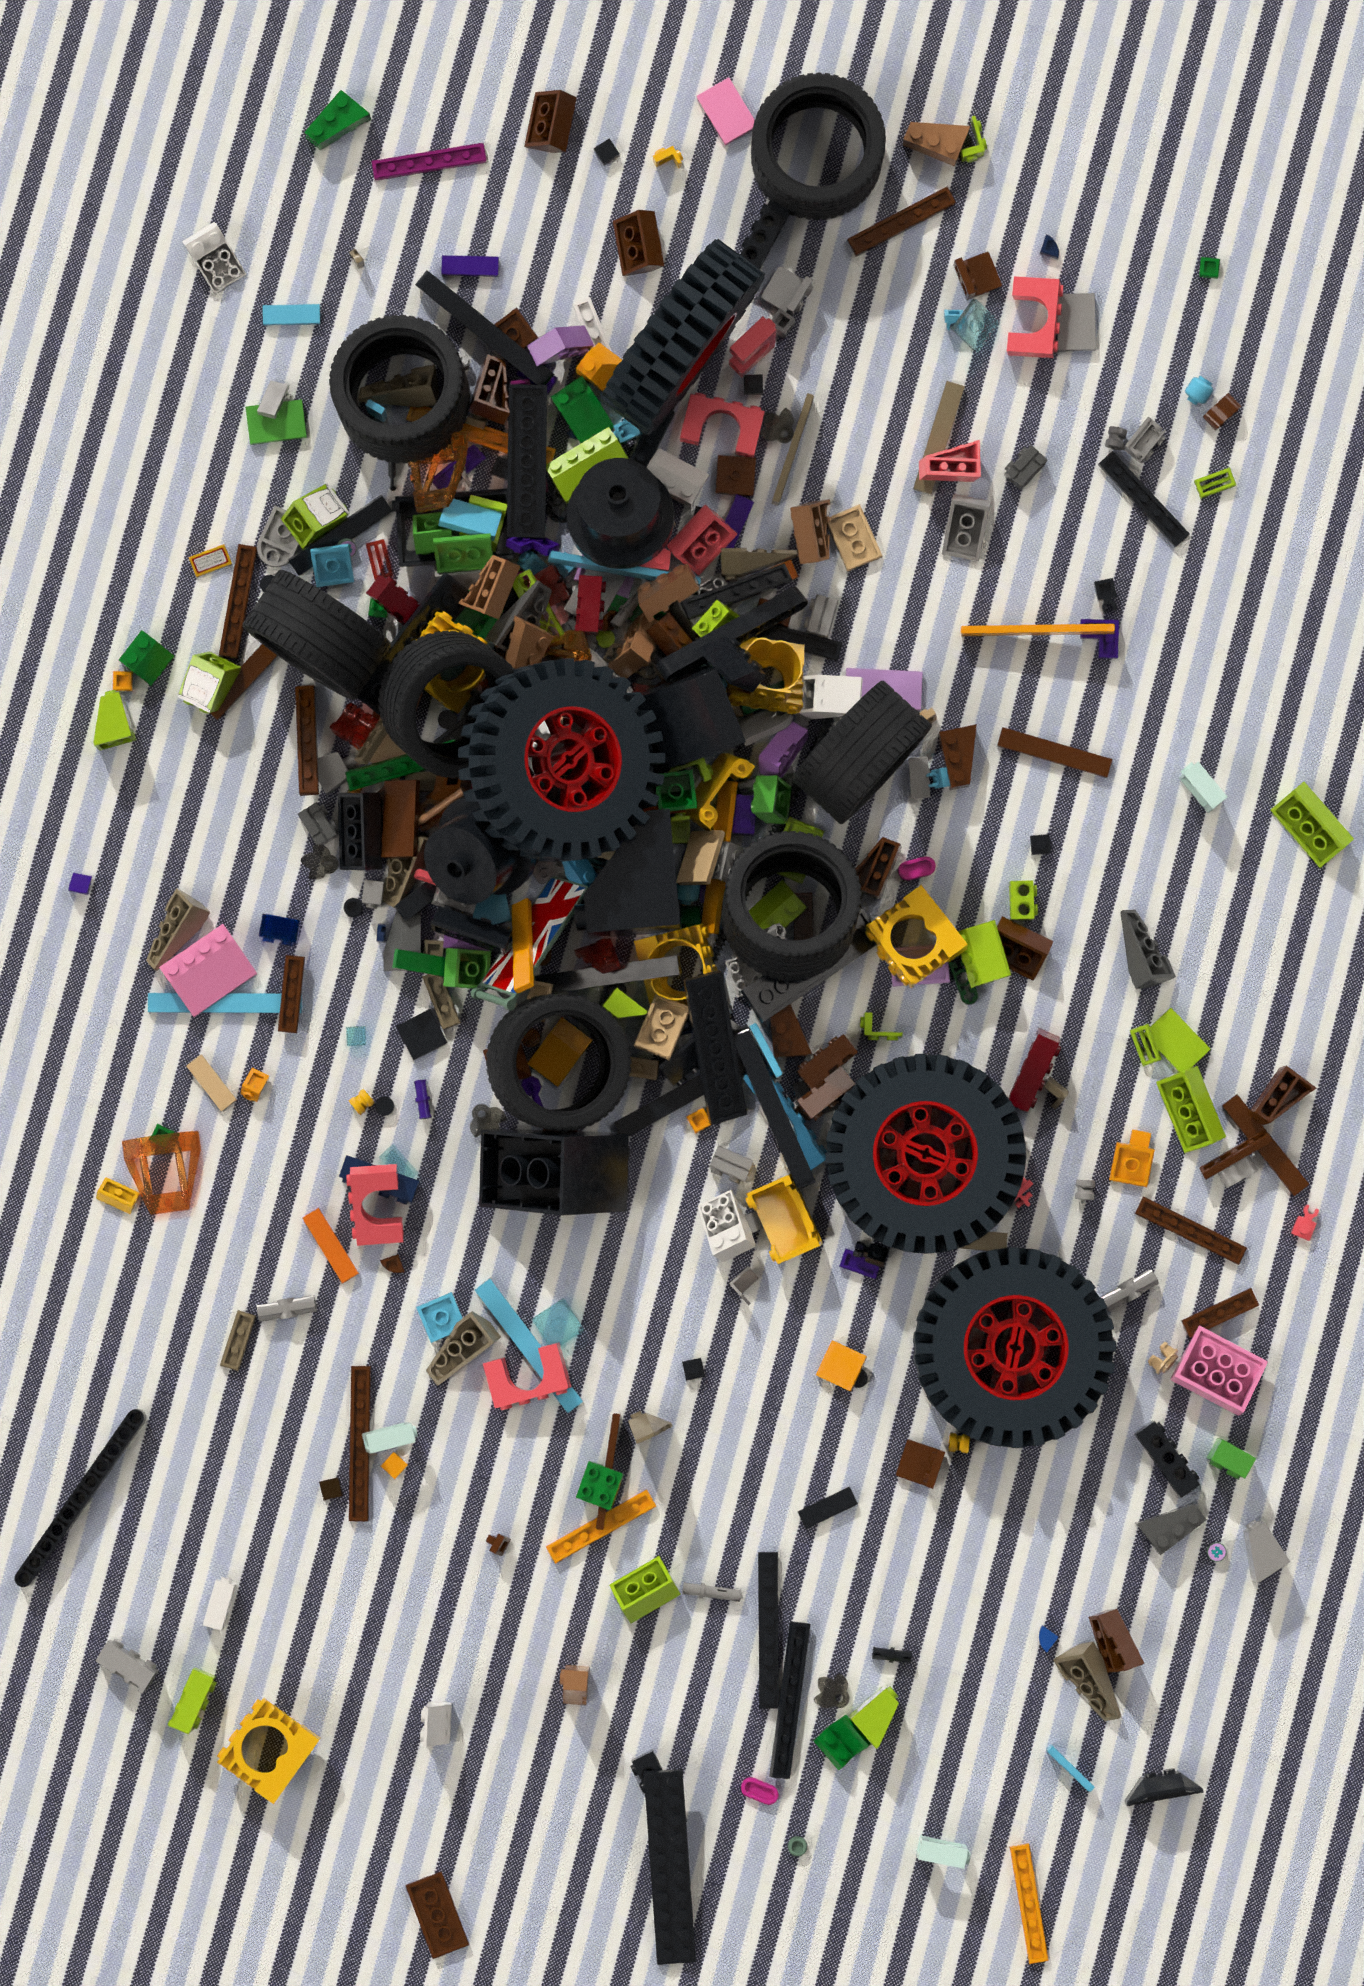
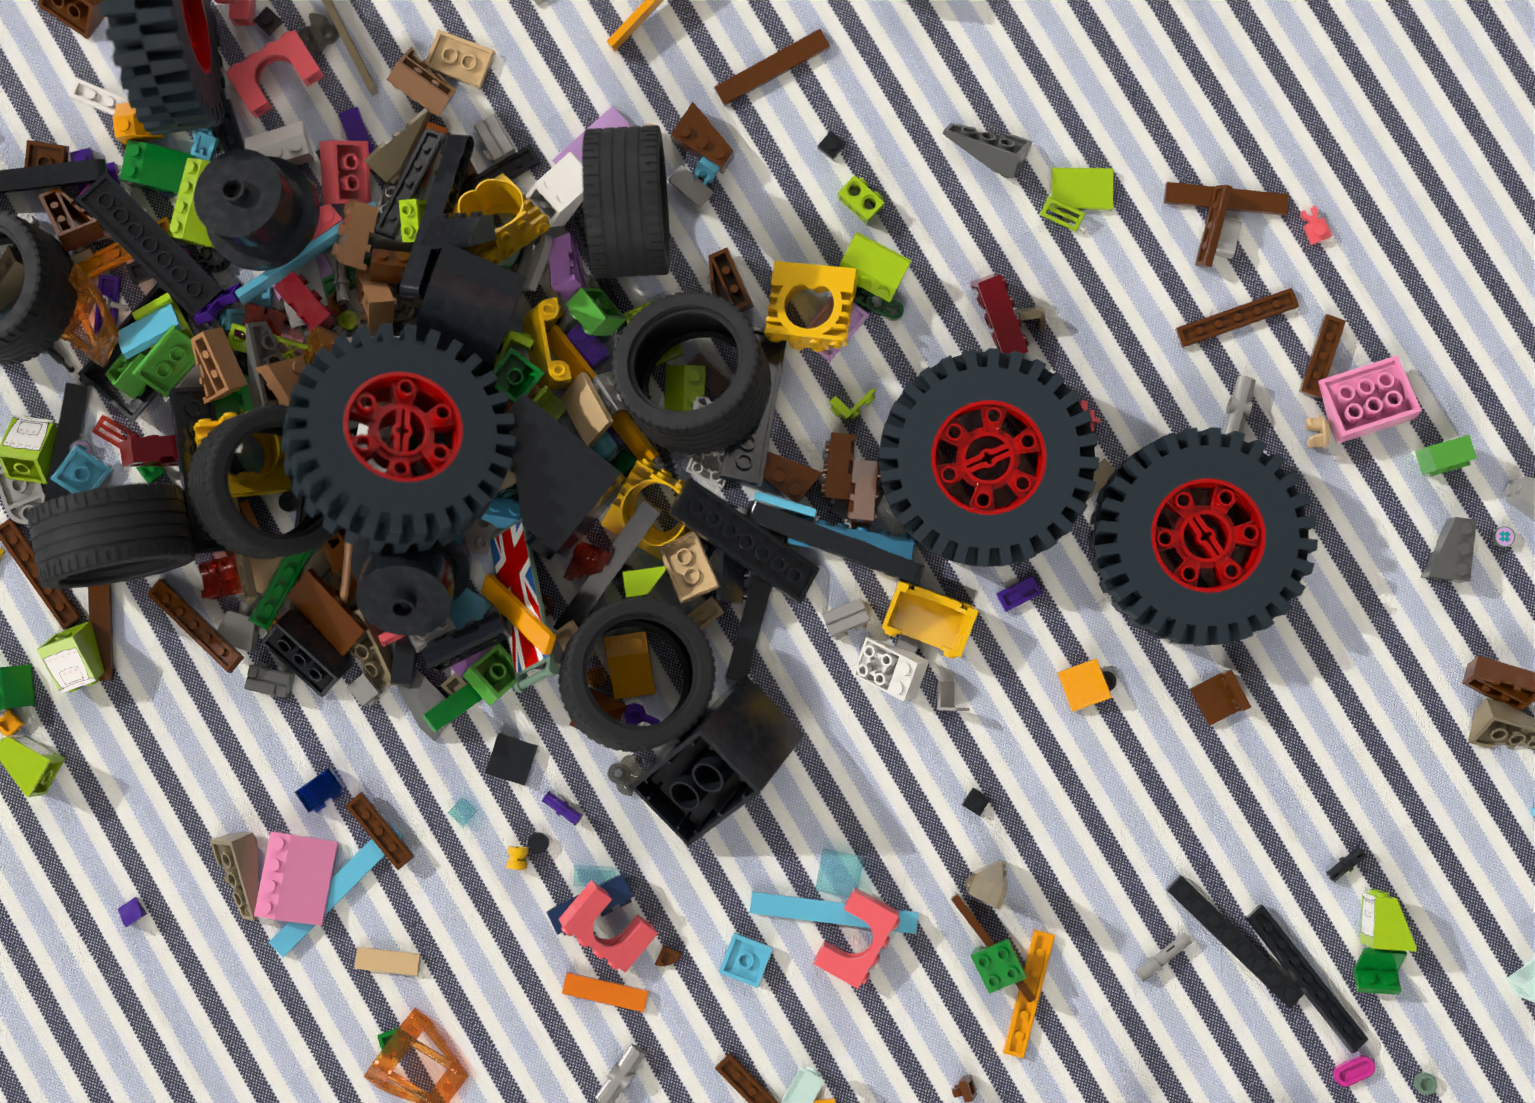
camera: 40 degrees left, 0 degrees up
(254, 1085) = (421, 929): light orange bracket -> none
(317, 862) = (298, 710): clear smoke plate -> none
(353, 907) = (361, 716): black tile -> none
(381, 933) = (402, 714): dark blue tile -> none
(441, 1001) = (501, 718): dark tan tile -> none
(465, 1342) = (784, 958): dark tan wedge -> none
(561, 344) = (85, 131): medium lavender wedge -> none
(644, 1589) = (1111, 1008): lime slope -> none
(698, 1120) = (787, 609): light orange tile -> none
(735, 475) = (323, 101): reddish brown plate -> none
(827, 1507) = (1183, 802): black tile -> none
(830, 1690) = (1328, 938): clear smoke plate -> none
(874, 1254) = (1022, 576): black plate -> none
(916, 868) = (757, 256): dark pink tile -> none
(963, 1444) = (1231, 652): yellow wheel -> none
(1023, 948) = (900, 232): reddish brown slope -> none
(1046, 1638) = (1447, 731): blue tile -> none
(1085, 1194) = (1132, 370): light grey wheel -> none
(1131, 1164) = (1143, 312): light orange tile -> none
(1140, 1138) = (1130, 289): light orange tile -> none
(1180, 1486) = (1364, 504): black brick -> none
(1191, 1109) = (1145, 227): lime slope -> none
(1279, 1095) = (1200, 149): reddish brown wedge -> none

